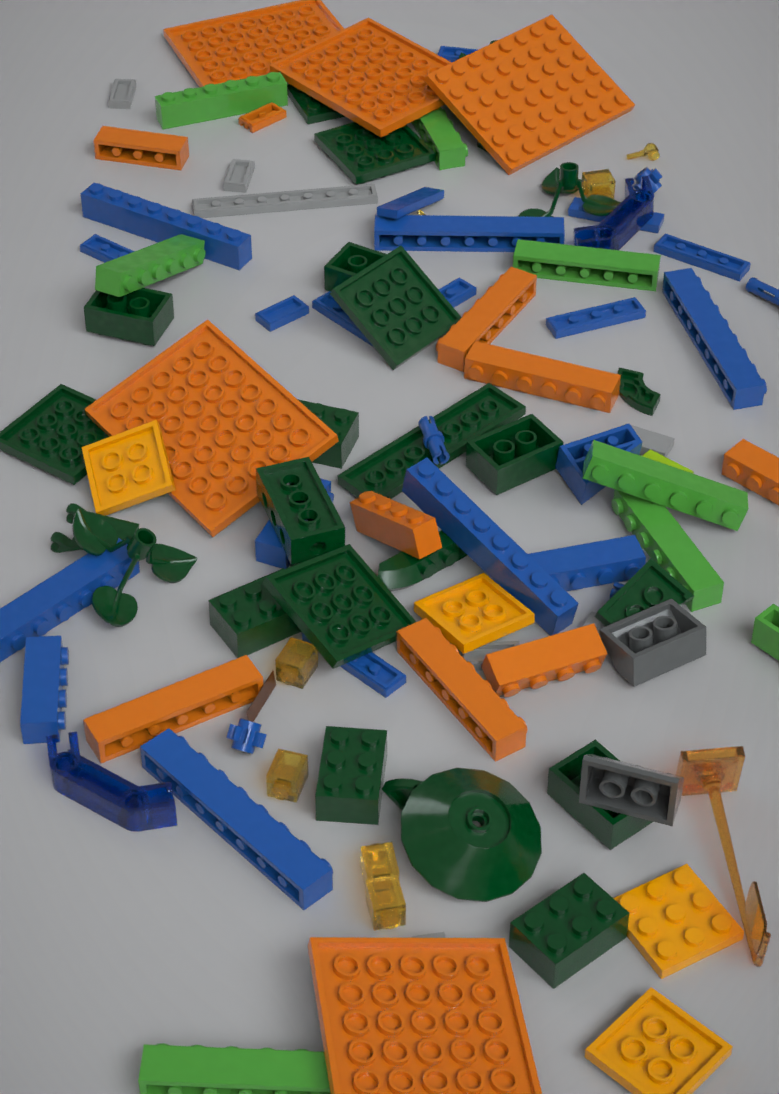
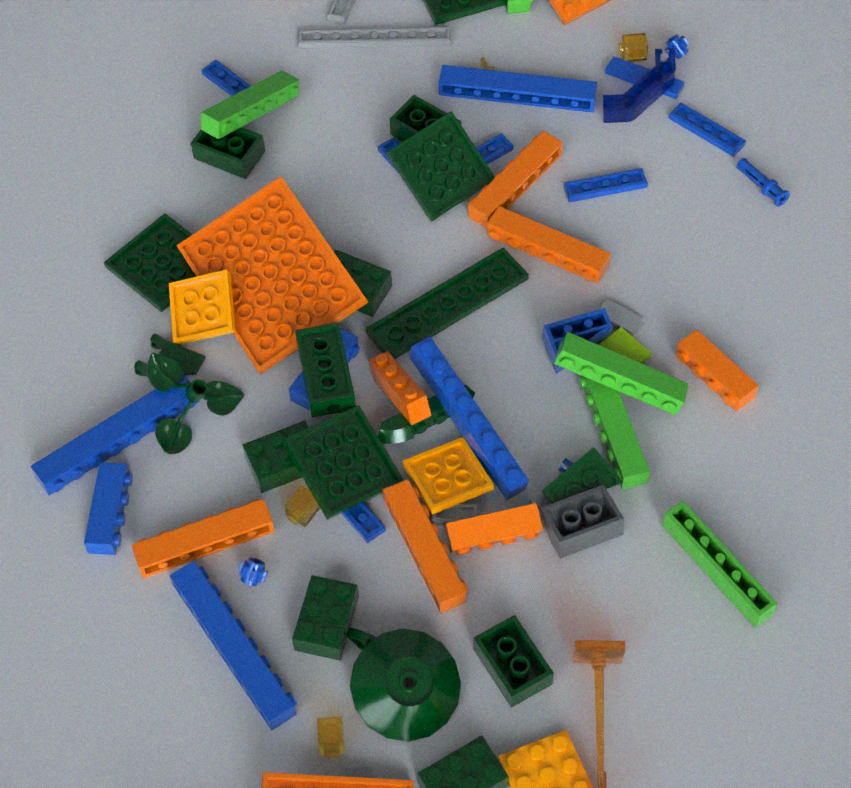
camera: 10 degrees right, 15 degrees up
(107, 793) = (139, 608): clear blue piece -> none
(160, 223) = (272, 57): blue brick -> none
(261, 698) = (270, 536): reddish brown sticker -> none
(282, 313) = (352, 155): blue tile -> none
(287, 775) = (277, 611): clear yellow brick -> none
(378, 860) = (332, 702): clear yellow brick -> none
(410, 203) = (474, 53): blue tile -> none
(433, 440) = (446, 304): blue pin -> none
(513, 454) = (508, 323): dark green brick -> none
(566, 181) = (607, 41): dark green plant -> none
(588, 265) = (608, 131): bright green brick -> none
(593, 562) = (547, 438): blue brick -> none
(630, 789) = (529, 669): dark grey slope -> none
(636, 393) = (622, 266): dark green tile -> none
(649, 150) = (686, 12): clear yellow hand -> none
(714, 339) = (697, 219): blue brick -> none

